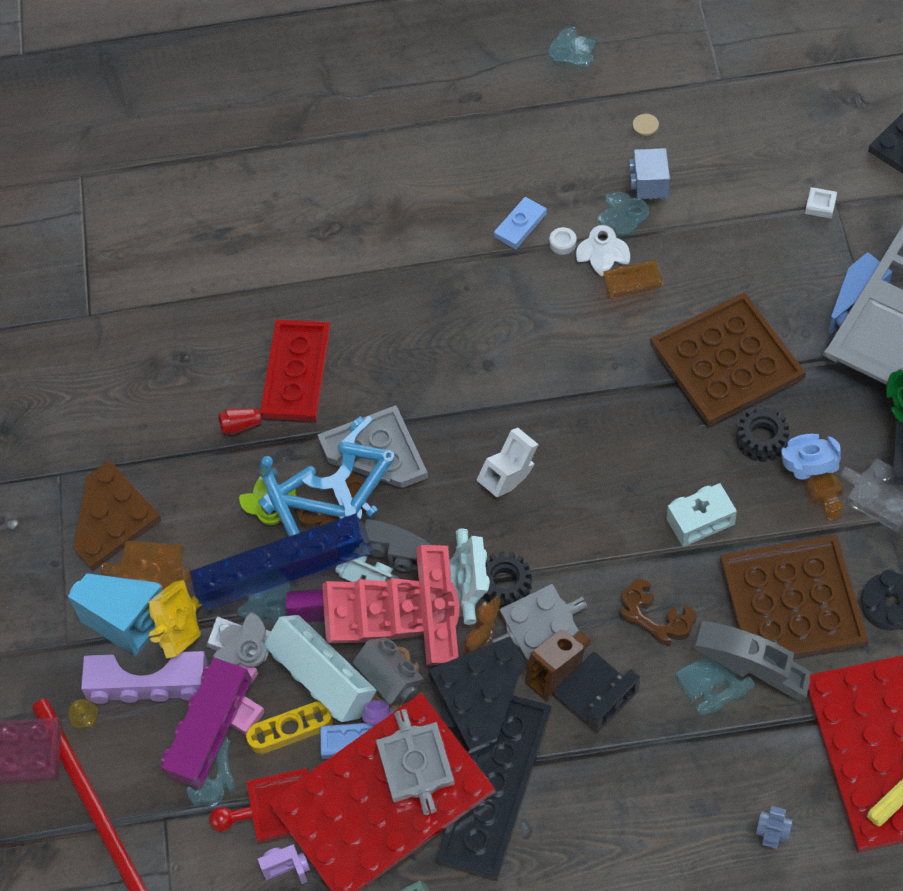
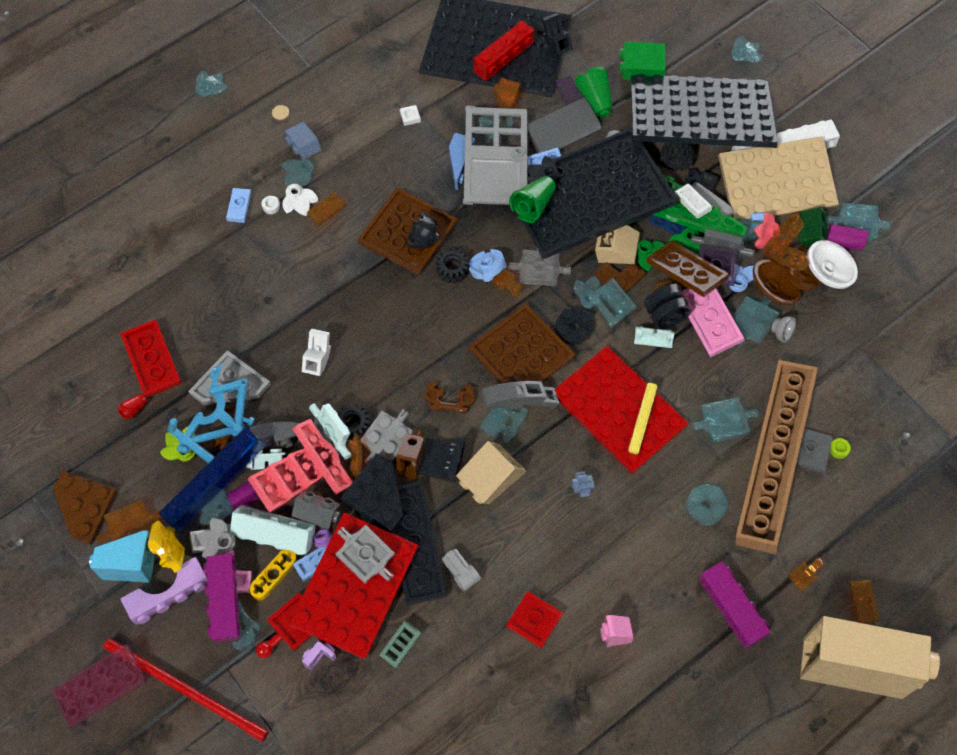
camera: 35 degrees left, 5 degrees up
(79, 707) = (134, 630): clear yellow plate -> none
(537, 861) = (464, 574): none -> light grey piece
(652, 743) = (490, 473): none -> tan slope
(701, 514) = (444, 328): light aqua brick -> none
(743, 369) = (423, 232): none -> black cylinder

